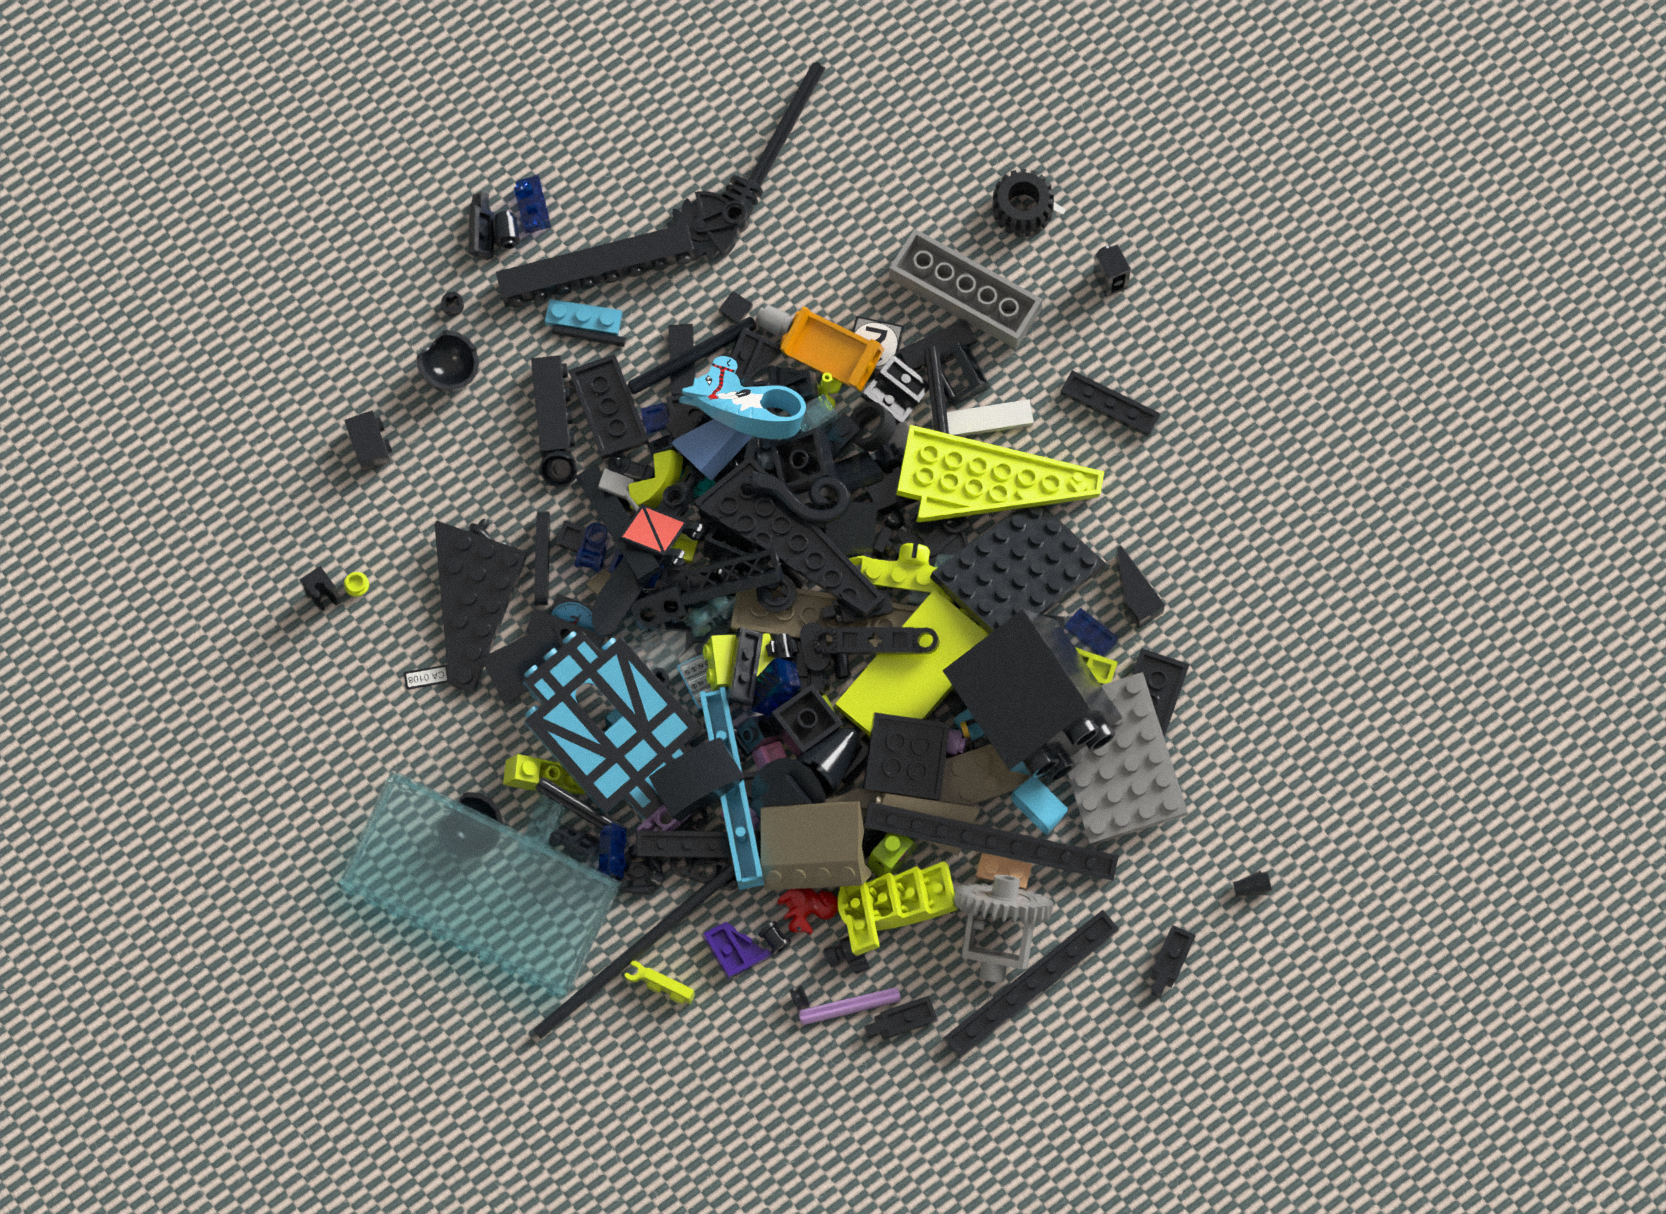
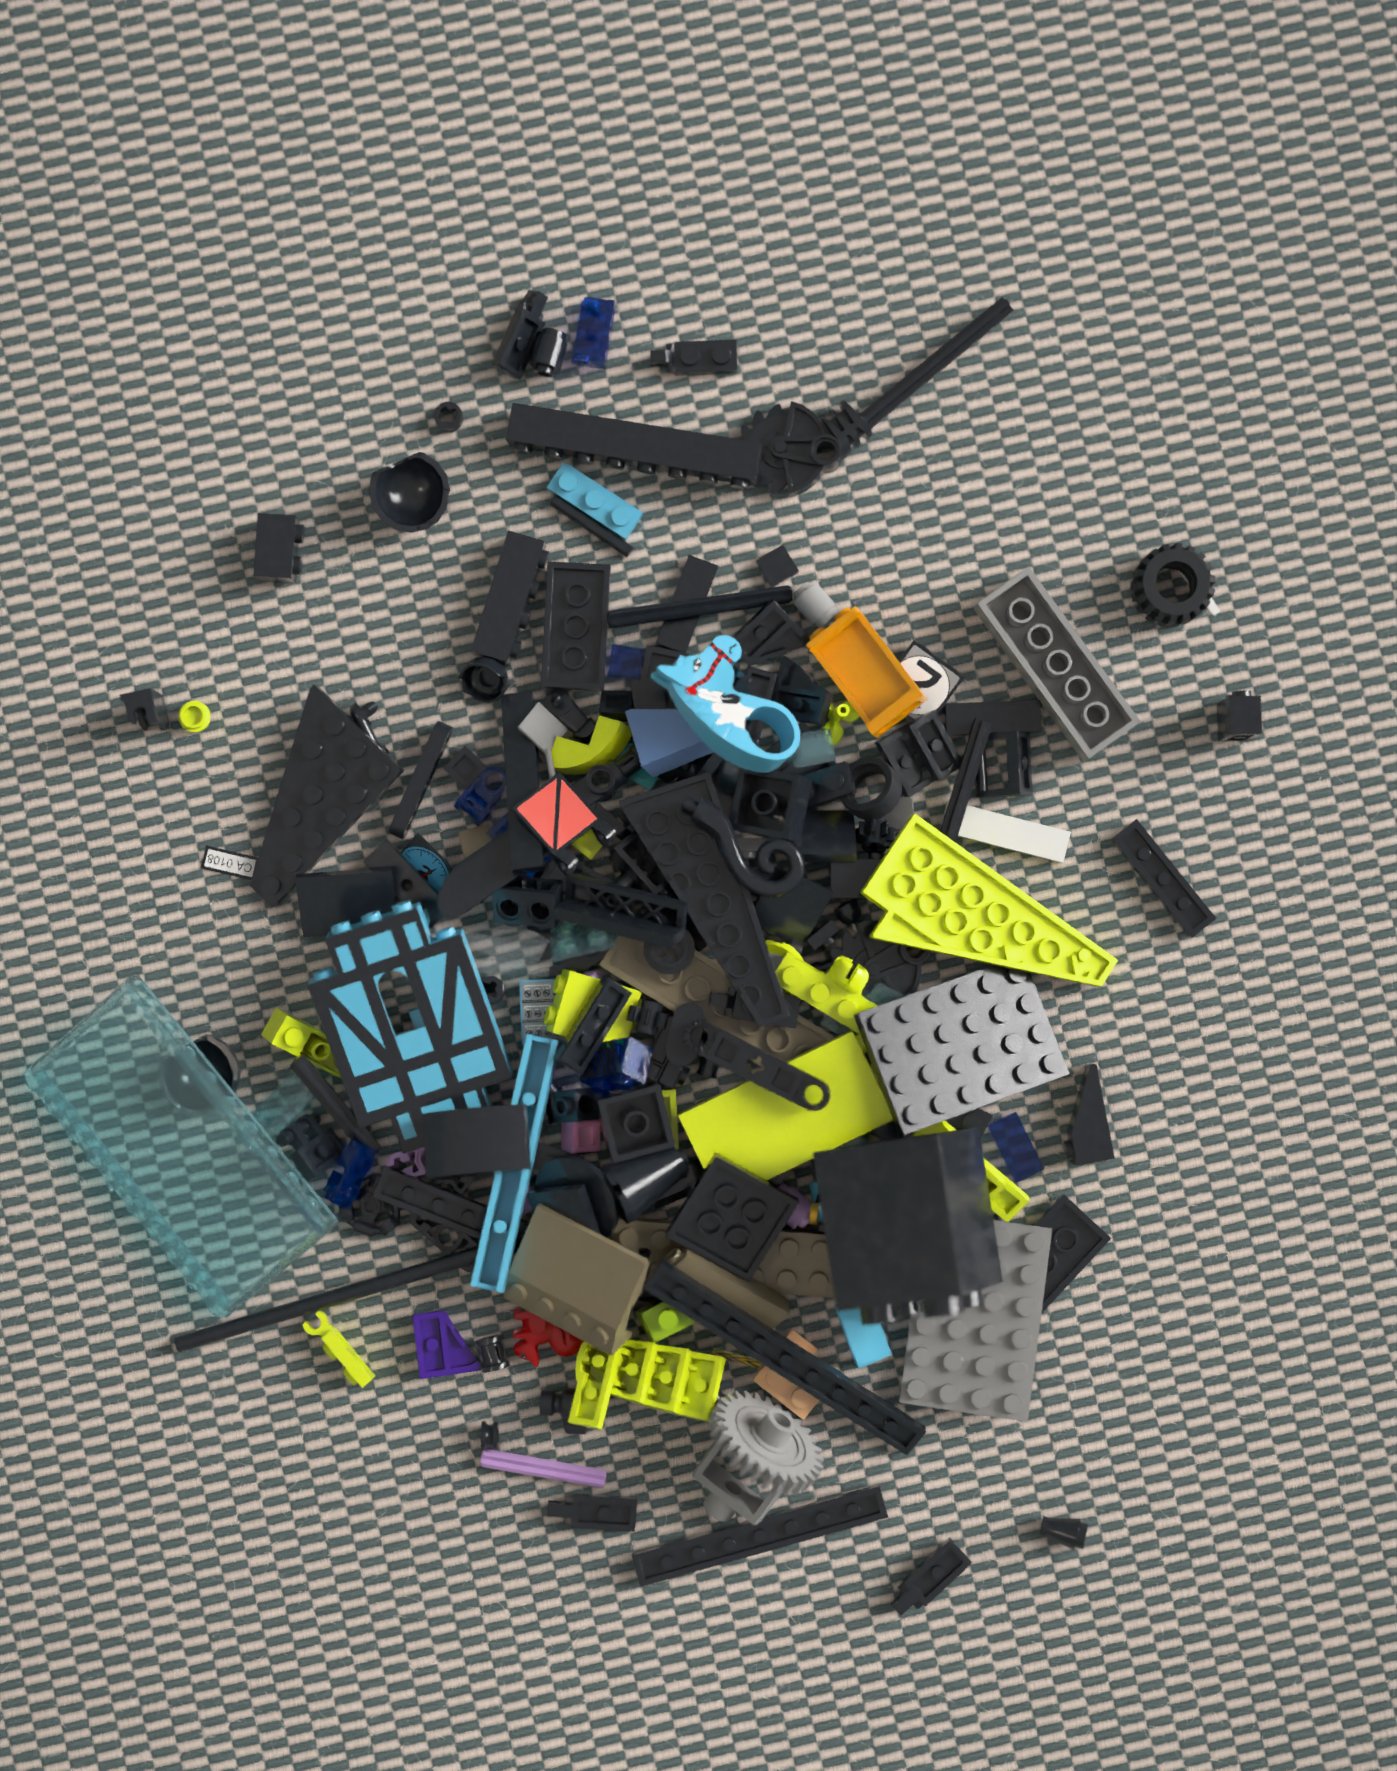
camera: 20 degrees right, 15 degrees up
(614, 191) = (697, 357): none -> black hinge
(960, 862) = (737, 1358): none -> sticker

